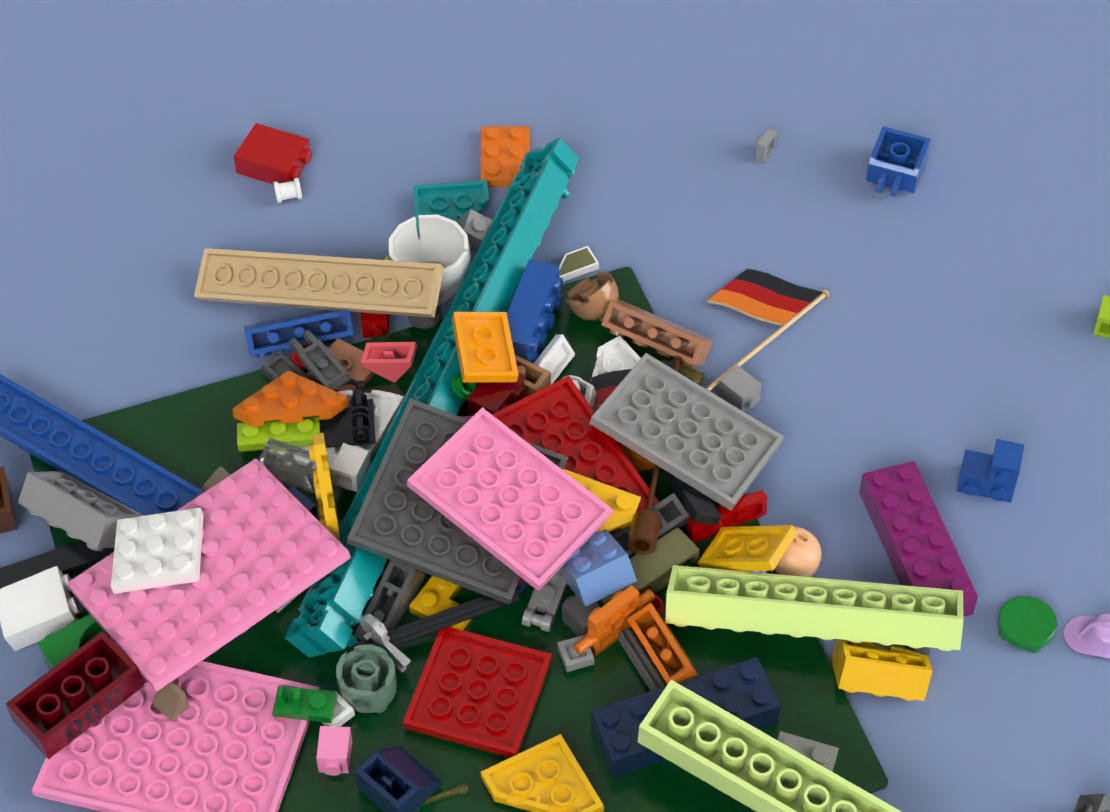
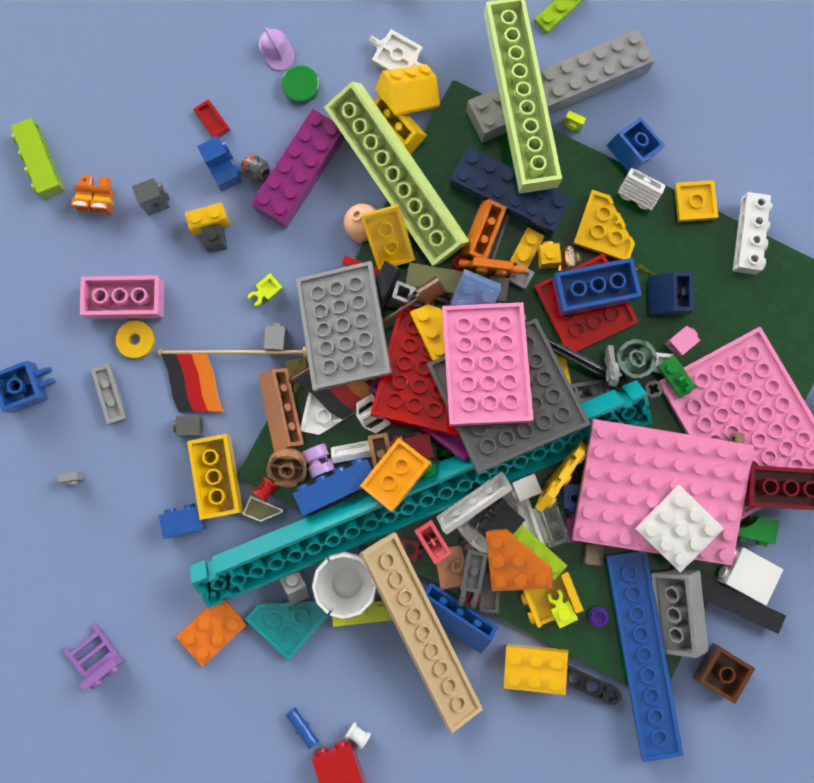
camera: 130 degrees left, 30 degrees up
(117, 390) = (582, 684): none -> black beam
(160, 444) = (598, 617): none -> dark purple plate
(177, 356) = (536, 669): none -> yellow brick
(203, 413) = (563, 611): none -> neon yellow plate
(214, 422) = (539, 604): none -> yellow panel
(318, 672) = (657, 388): none -> dark grey bush
(342, 158) = (302, 728): none -> blue pin
(385, 409) = (474, 503): none -> white plate
(408, 330) = (417, 548): none -> dark red brick
(484, 695) = (596, 286): none -> blue brick
(547, 714) = (568, 258): none -> clear orange tile
(561, 59) = (105, 666): none -> medium lavender plate
(570, 695) = (549, 255): none -> yellow brick
(581, 327) = (318, 461): none -> lavender wheel
(589, 266) = (265, 489): none -> red bush
(600, 684) = (527, 248): none -> yellow plate
(630, 194) = (181, 522): none -> blue brick
(645, 244) = (215, 476): none -> yellow slope
(720, 262) = (189, 426): none -> dark grey brick
(803, 420) = (268, 288): none -> neon yellow plate
(822, 225) = (109, 394): none -> light grey plate
(863, 271) = (124, 336): none -> yellow tile
(907, 412) = (214, 238): none -> pearl dark grey brick
(909, 705) = (409, 89): none -> yellow slope
(913, 293) = (122, 297): none -> bright pink brick
(936, 421) = (206, 217): none -> yellow brick
(957, 504) = (255, 168): none -> dark grey head
(977, 749) = (395, 51): none -> white plate
(1007, 383) = (151, 196): none -> dark grey brick
(1056, 344) = (94, 197): none -> orange hips
(1060, 512) = (211, 119): none -> red tile

